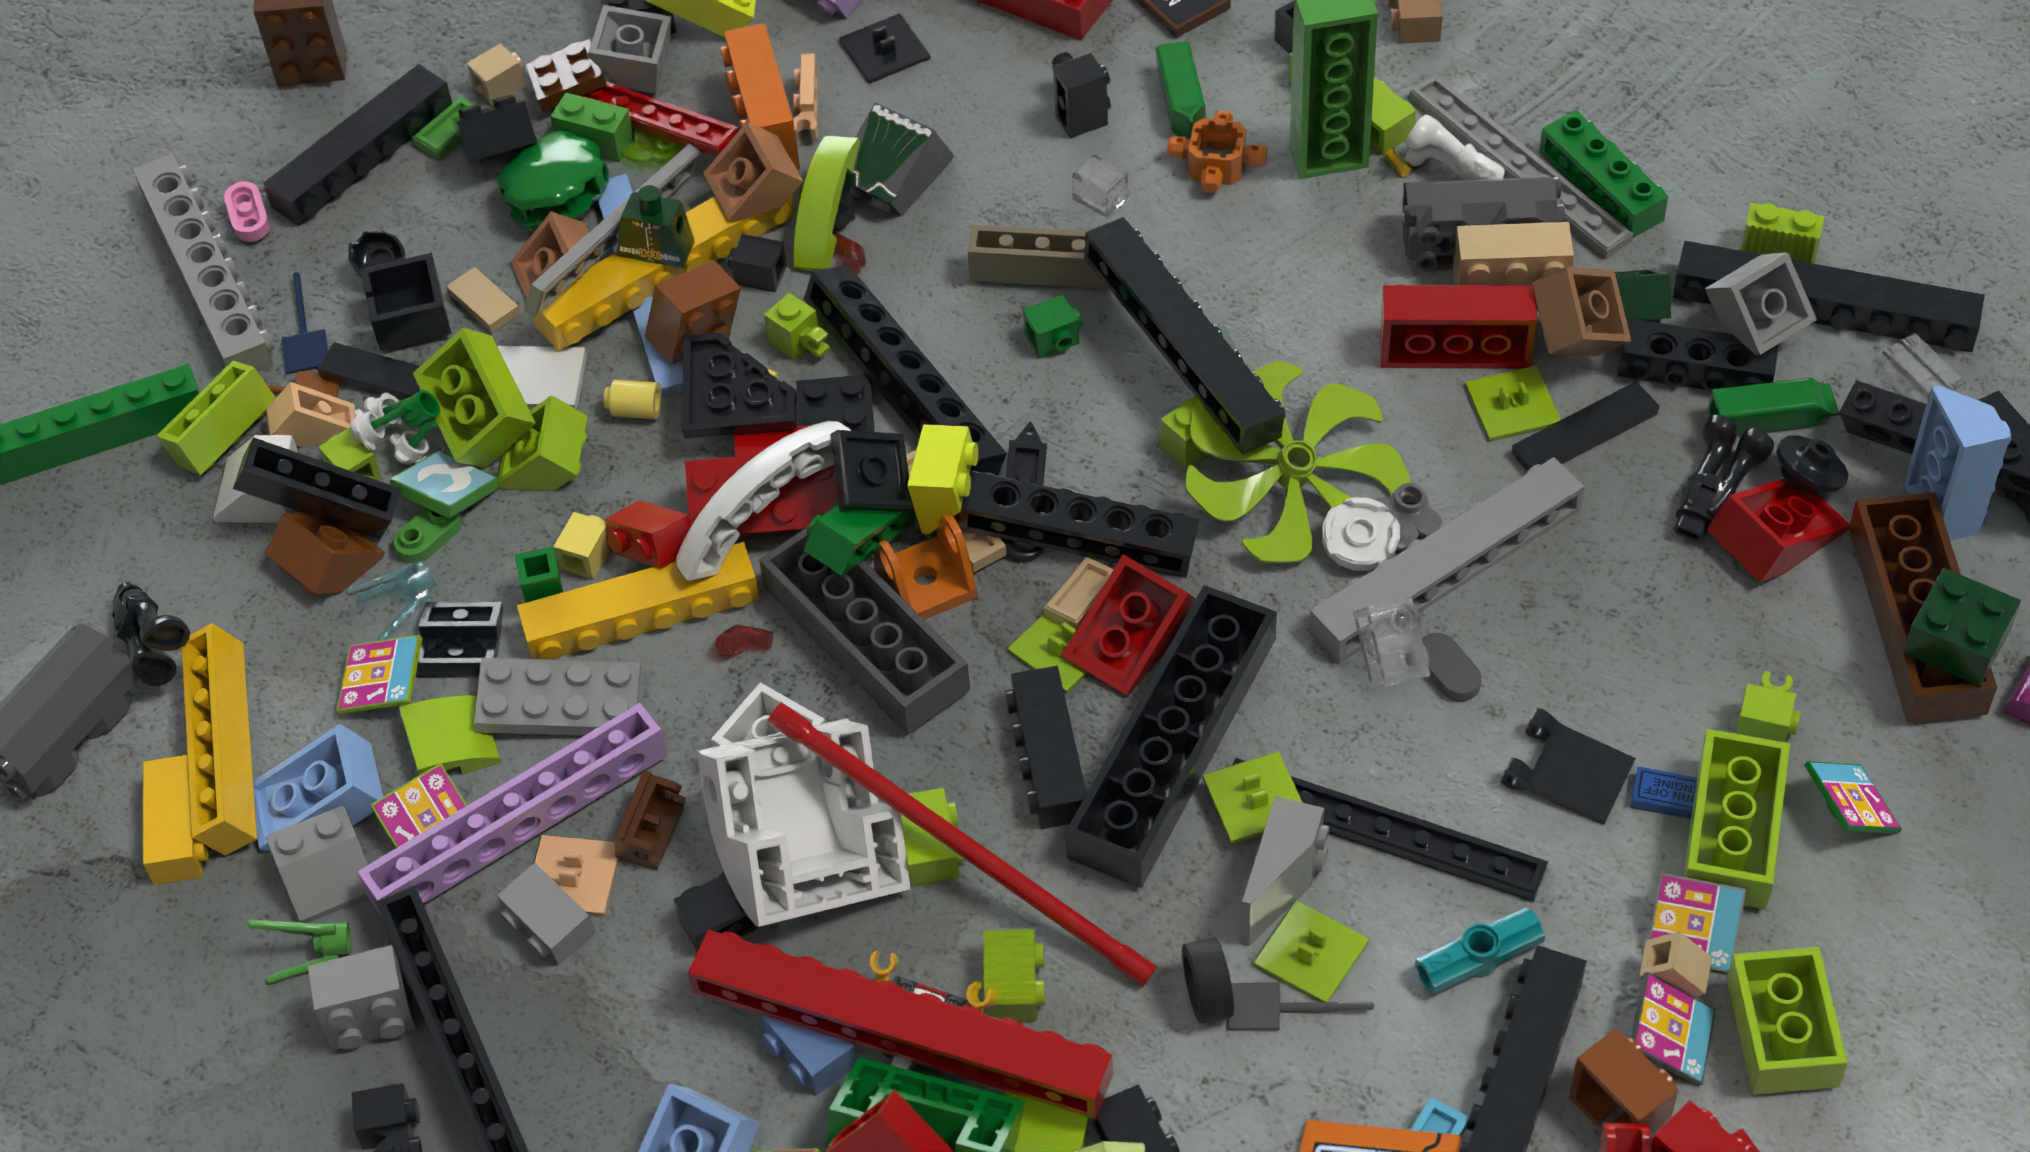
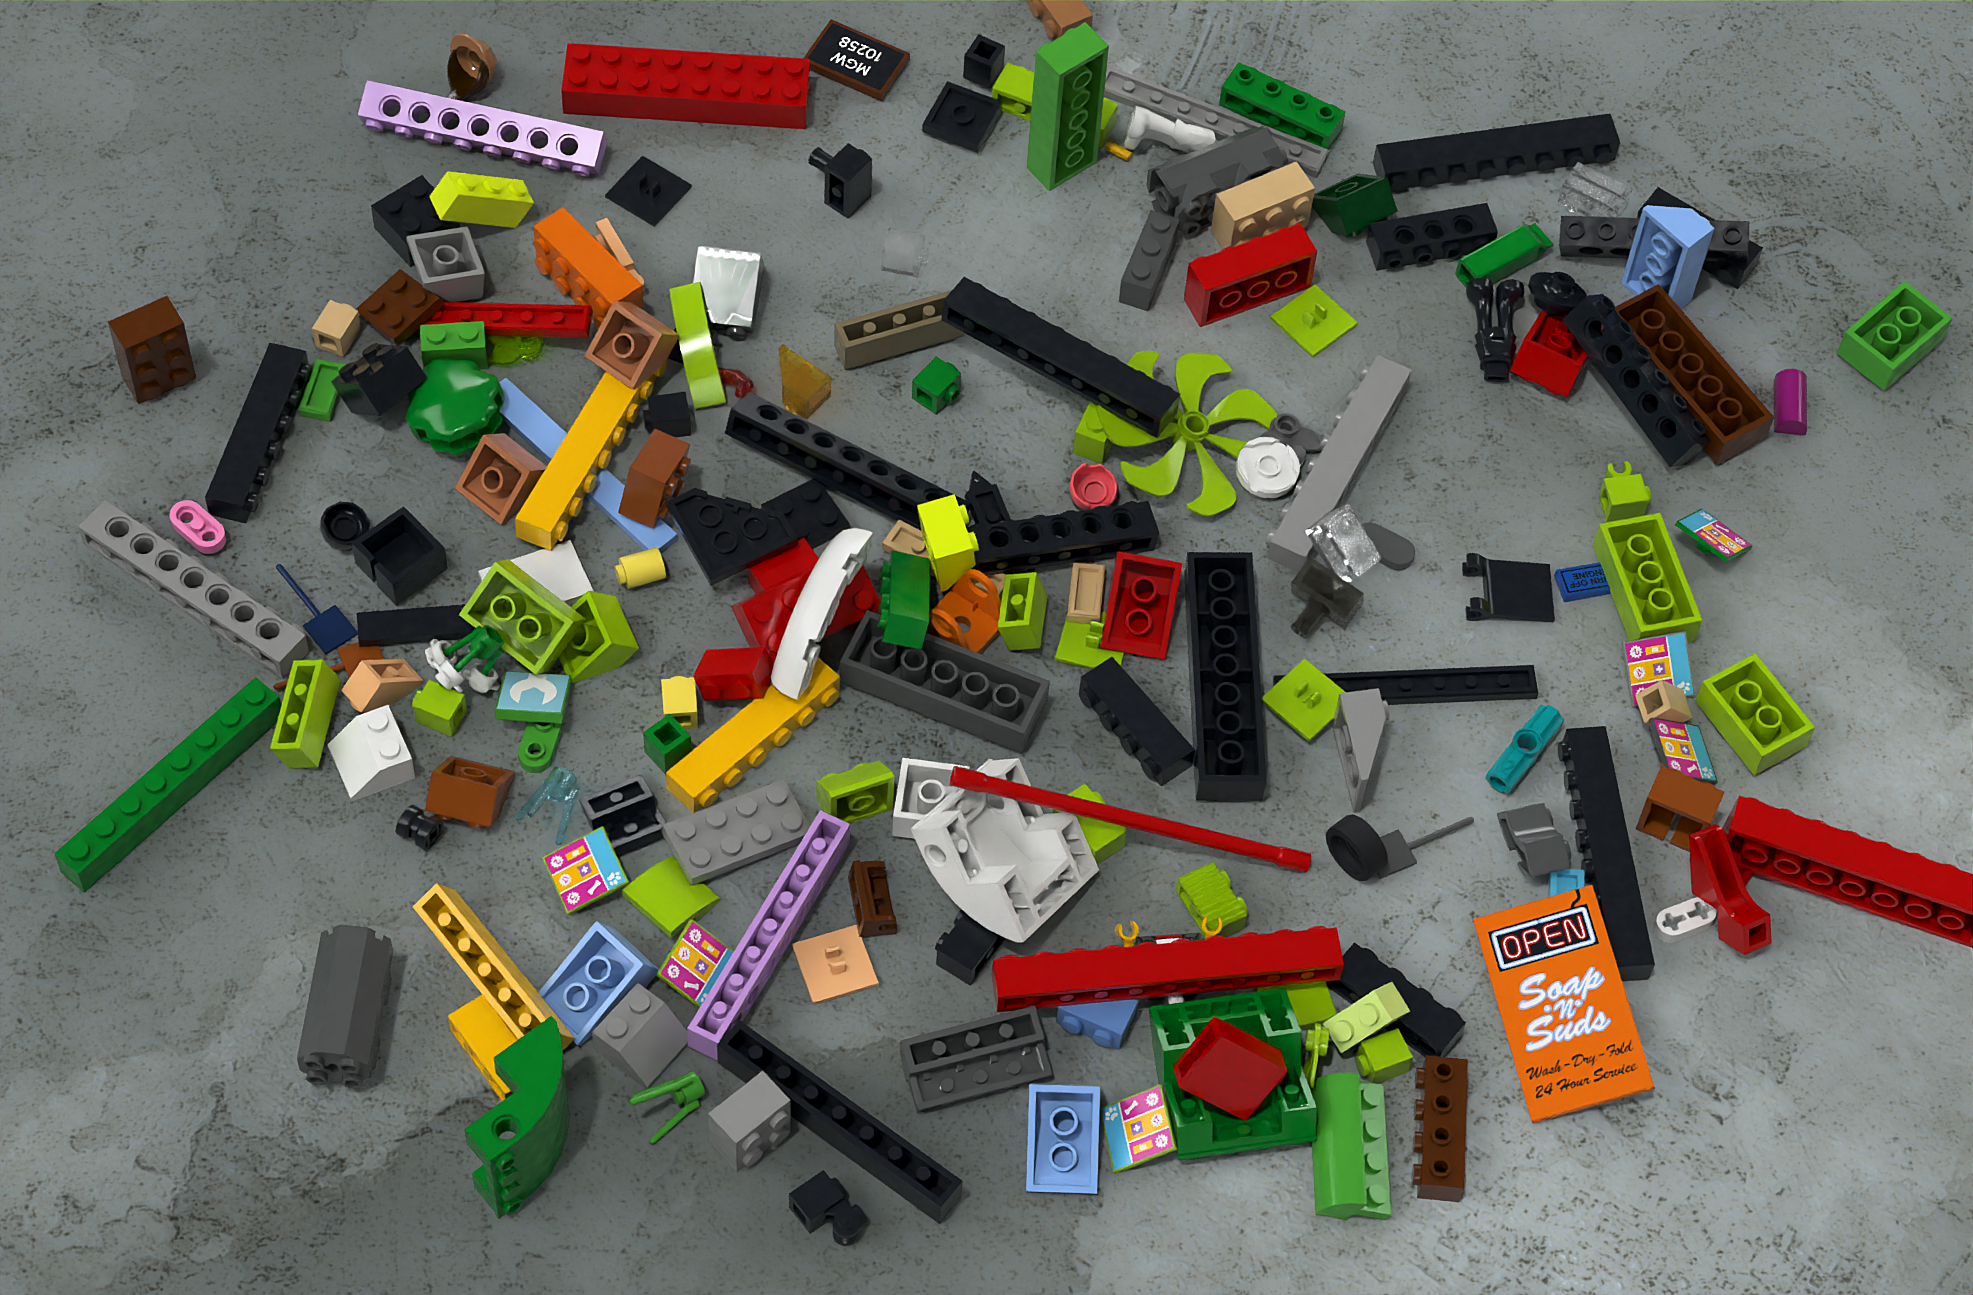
camera: 35 degrees left, 5 degrees up
(130, 898) = (534, 1112): none -> green slope
(148, 634) = (355, 903): black piece -> none
(252, 569) = (420, 828): none -> black wheel
(316, 488) = (445, 740): black brick -> none
(483, 299) = (456, 529): tan tile -> none
(546, 914) = (842, 1001): light grey brick -> none
(603, 236) = (545, 432): light grey tile -> none
(644, 1034) = (975, 1059): none -> dark grey brick
(655, 229) = (586, 420): dark green torso -> none
(694, 703) = (857, 792): none -> lime slope
(742, 637) = (848, 729): clear red arm -> none
(794, 328) = (734, 461): lime brick -> none
(871, 471) = (900, 558): black tile -> none
(911, 278) = (802, 384): none -> clear yellow slope
(993, 583) = (1022, 611): none -> lime brick
(1152, 483) = (1092, 486): none -> coral hair
(1180, 86) = (918, 147): green piece -> none
(1220, 133) = (986, 207): orange piece -> none
(1246, 75) = (962, 116): none -> black plate
(1311, 952) = (1406, 798): lime piece -> none
(1340, 693) = (1325, 597): none -> clear smoke brick
(1358, 278) = (1149, 260): none -> dark grey brick
(1427, 1057) = (1535, 839): none -> dark grey brick
(1581, 311) = (1342, 232): medium nougat brick -> none
(1587, 427) = (1378, 322): black tile -> none
(1762, 302) = (1464, 176): light grey slope -> none
(1782, 231) = (1439, 113): lime brick -> none
(1849, 590) = (1621, 375): none -> black brick
(1961, 627) = (1735, 381): dark green brick -> none

